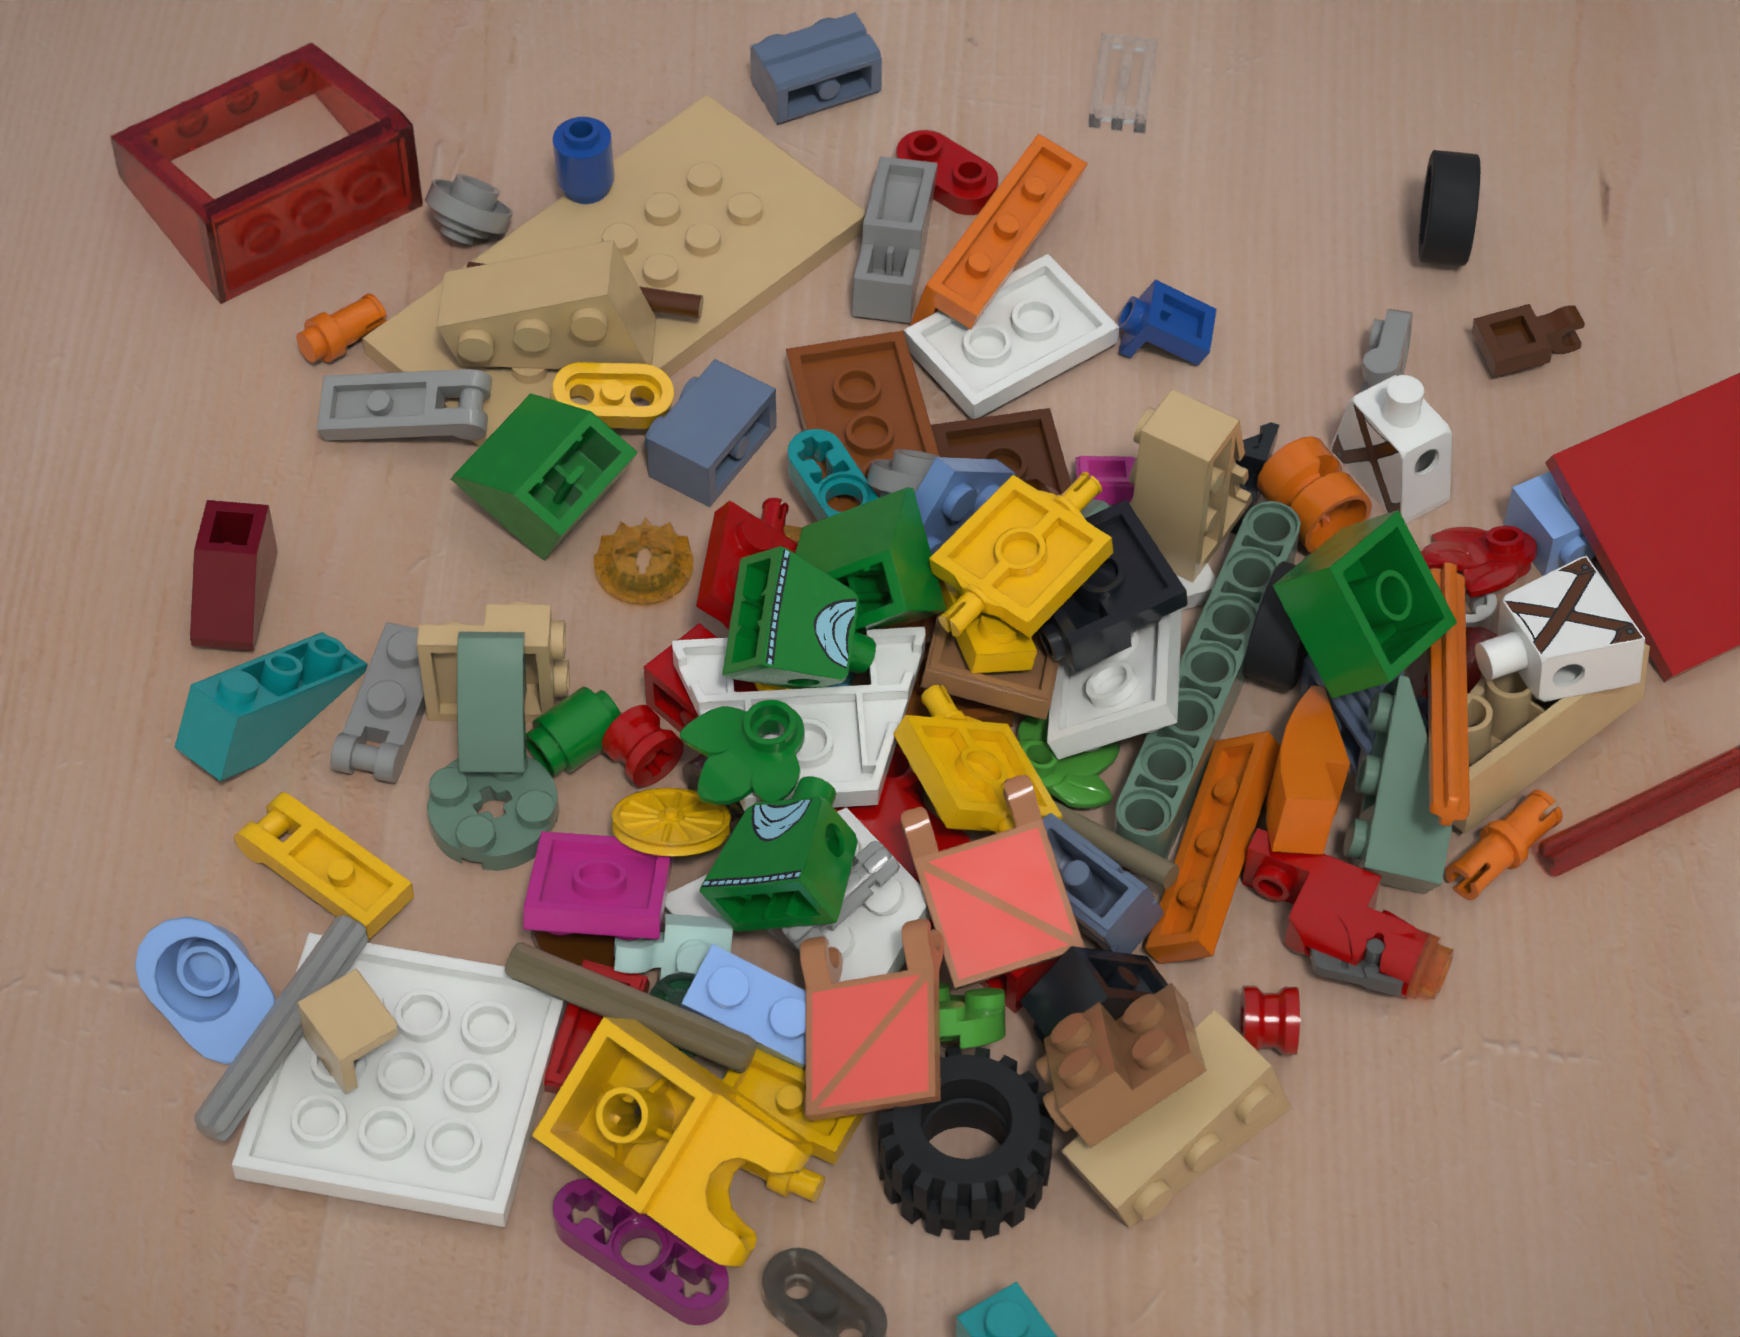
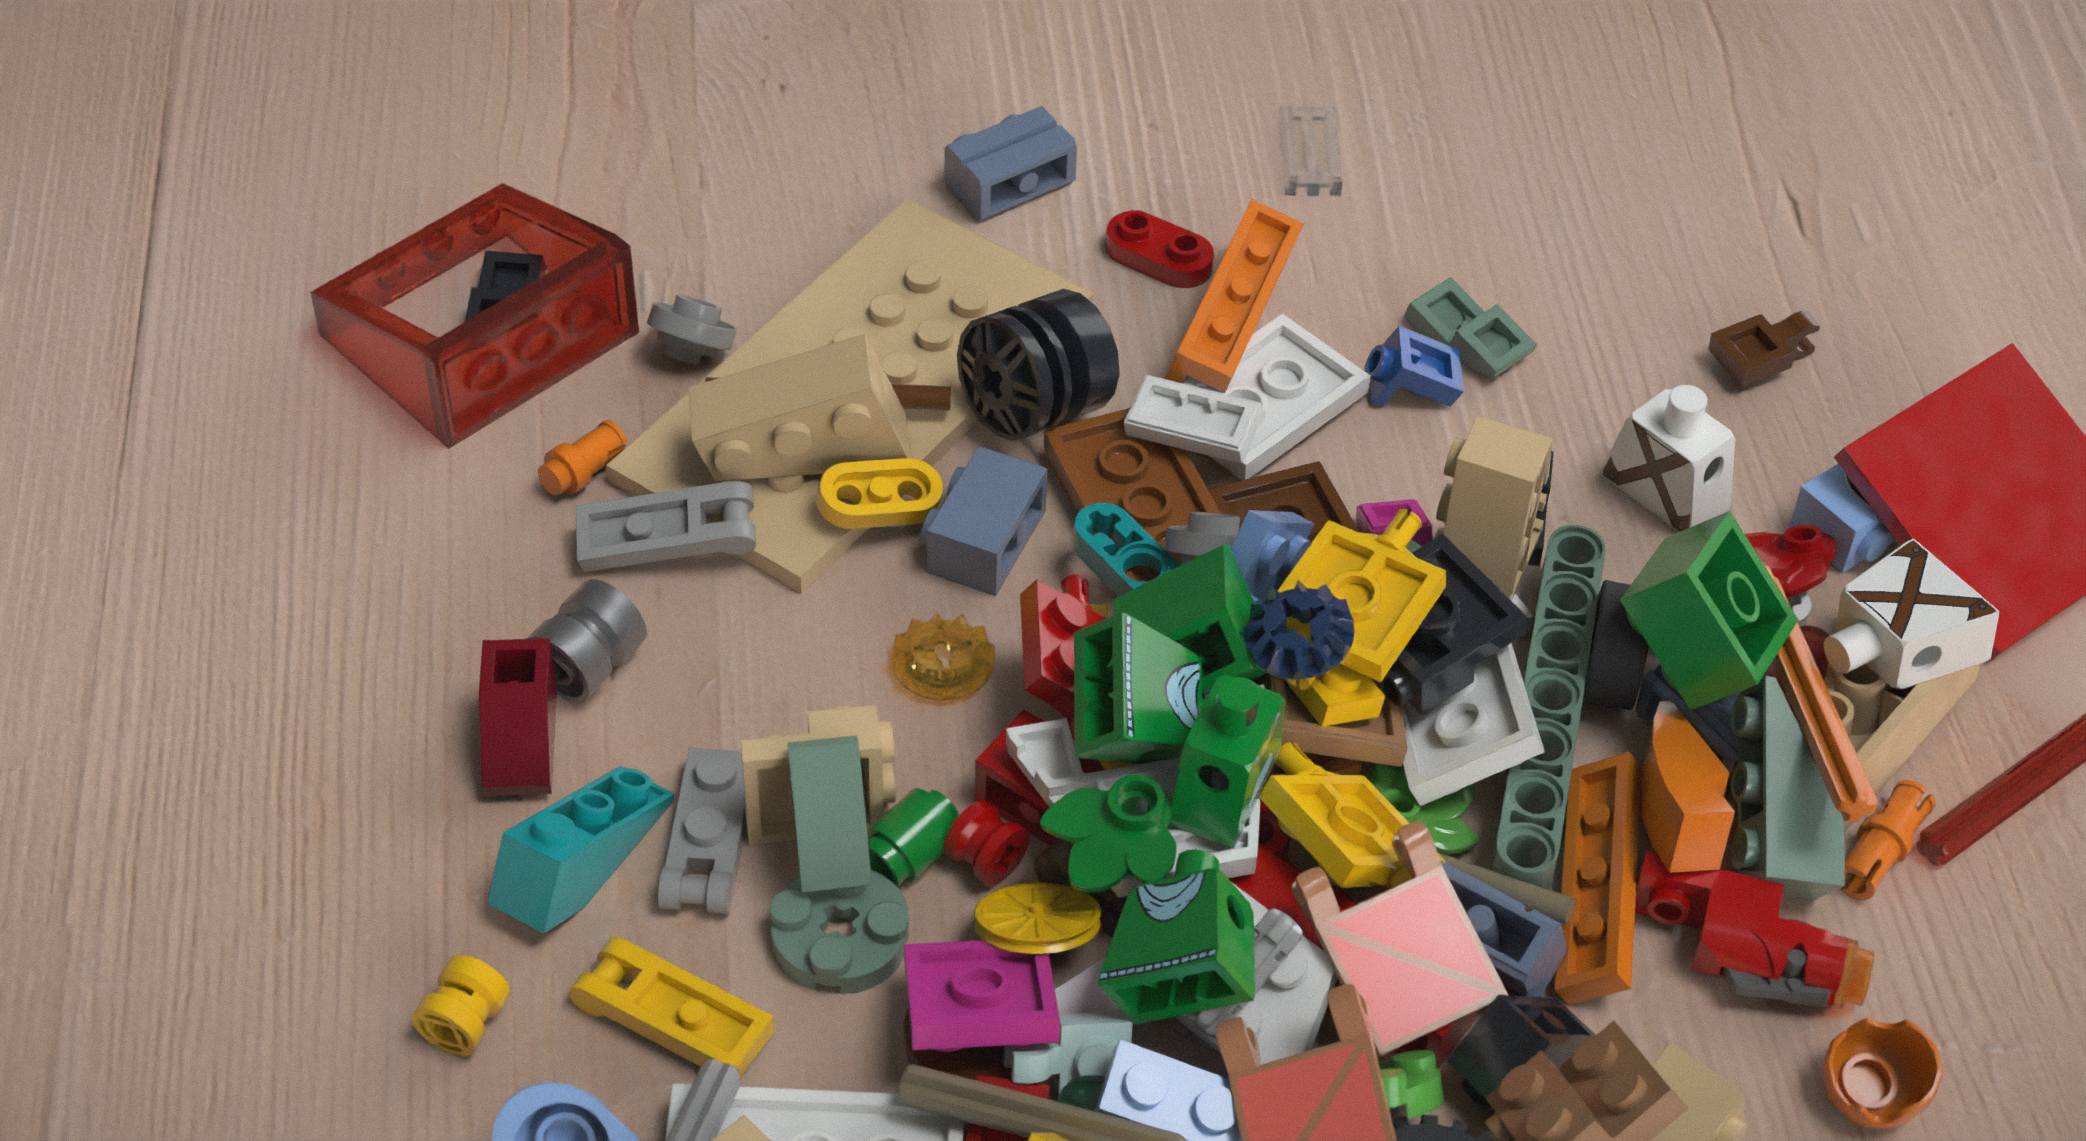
camera: 10 degrees left, 5 degrees down
(134, 837) = (465, 999): none -> yellow wheel
(299, 136) = (502, 276): none -> black slope
(314, 503) = (591, 636): none -> flat silver wheel
(544, 470) = (827, 574): green slope -> none
(583, 159) = (803, 267): blue brick -> none
(788, 283) = (1038, 364): none -> black wheel
(874, 678) = (1242, 737): none -> green torso
(894, 240) = (1129, 305): light grey slope -> none
(929, 353) = (1193, 418): none -> white plate
(934, 597) = (1285, 651): none -> dark blue gear
(1244, 298) = (1486, 339): none -> sand green slope
(1270, 1018) = (1711, 1041): red wheel -> none
(1315, 487) = (1600, 500): orange wheel -> none
(1387, 347) = (1638, 372): light grey plate -> none
(1429, 1064) = (1882, 1072): none -> orange hair
(1449, 207) = (1663, 231): black tyre -> none

